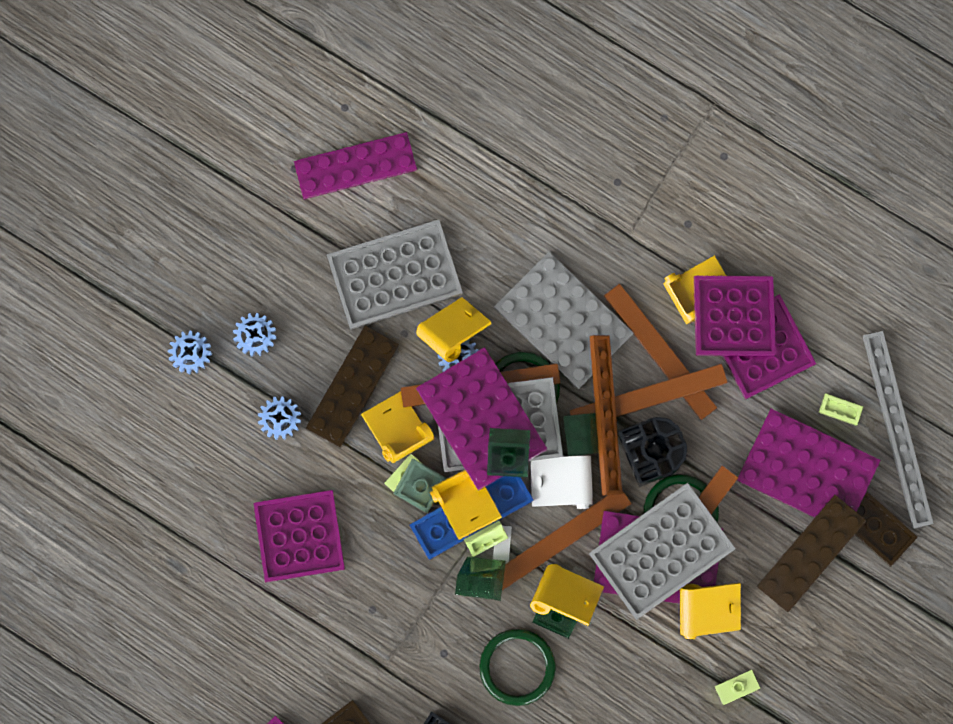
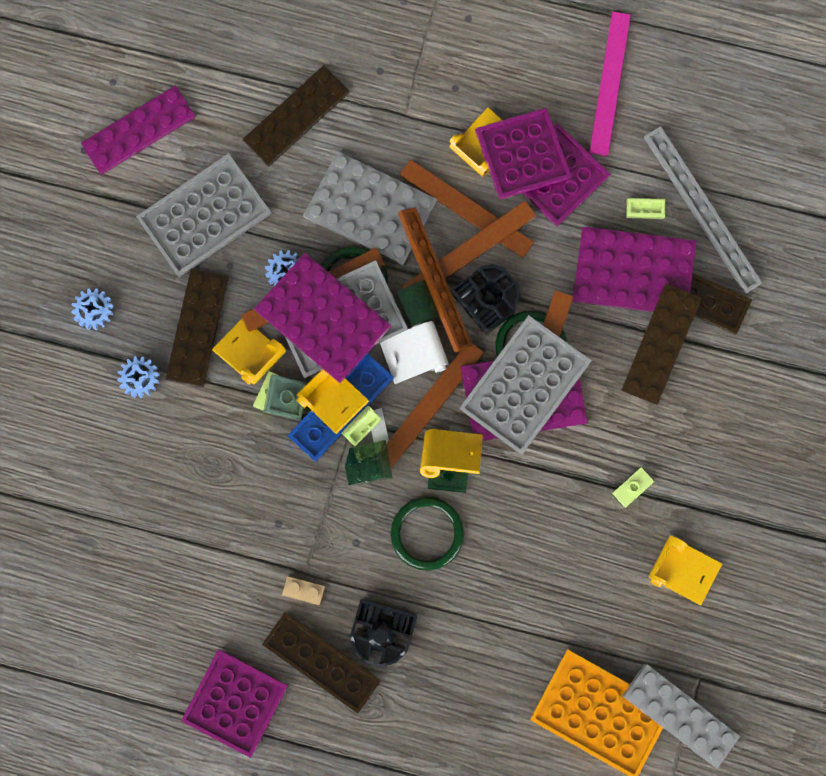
camera: 10 degrees left, 0 degrees up
(195, 347) = (33, 350): light blue gear -> none
(299, 536) = (189, 478): magenta plate -> none
(377, 684) = (303, 590): none -> tan plate
(451, 328) = (269, 245): yellow door -> none
(508, 452) = (355, 339): clear green slope -> none
(518, 201) = (296, 116): none -> dark brown plate
(709, 609) = (585, 424): yellow door -> none
(845, 270) = (609, 84): none -> dark pink tile

